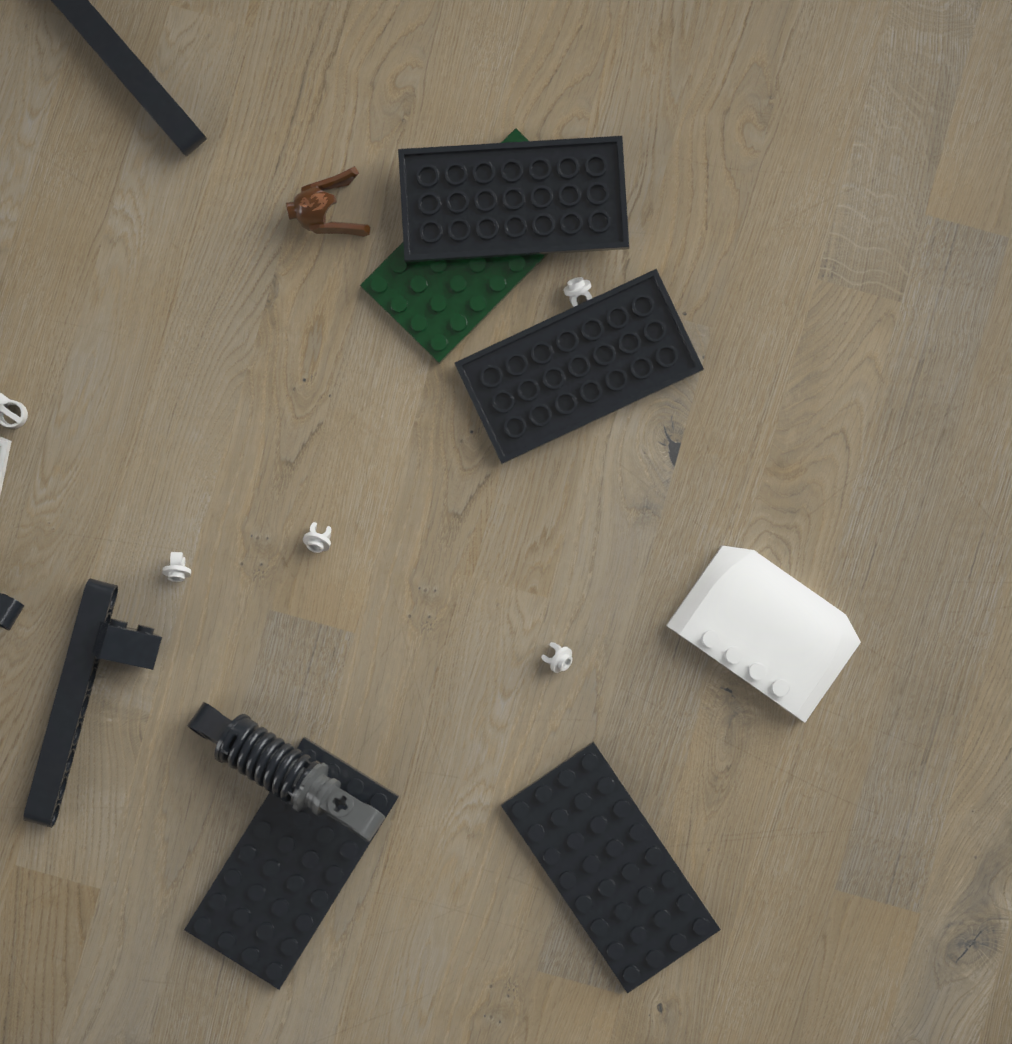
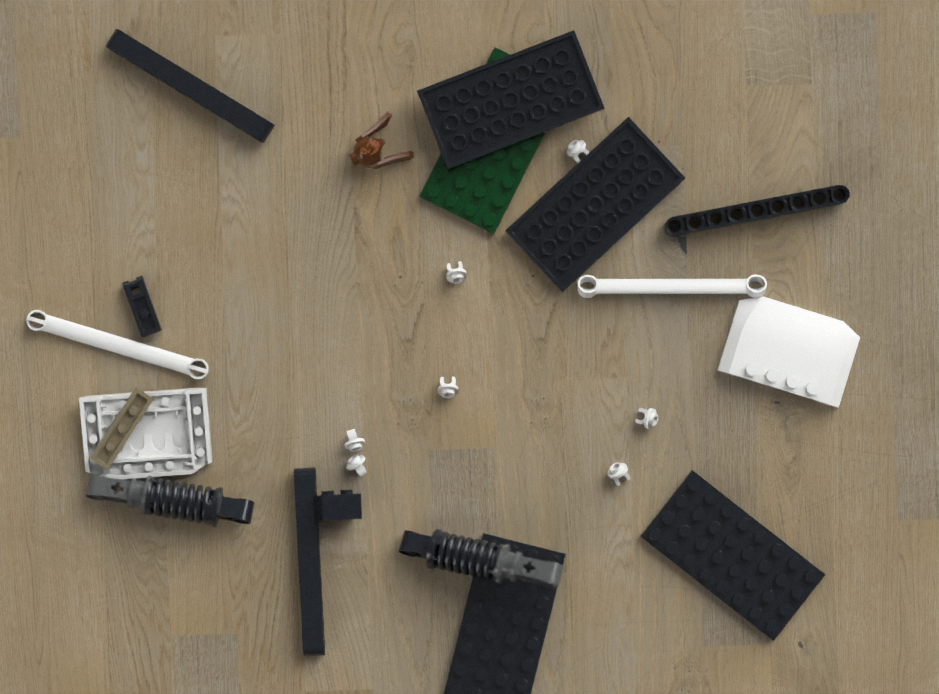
camera: 20 degrees left, 0 degrees up
(170, 597) = (355, 462): none -> white plate
(373, 399) = (456, 275): none -> white plate
(497, 713) = (618, 470): none -> white plate
(643, 500) = (672, 286): none -> white piece
(794, 437) = (765, 205): none -> black beam

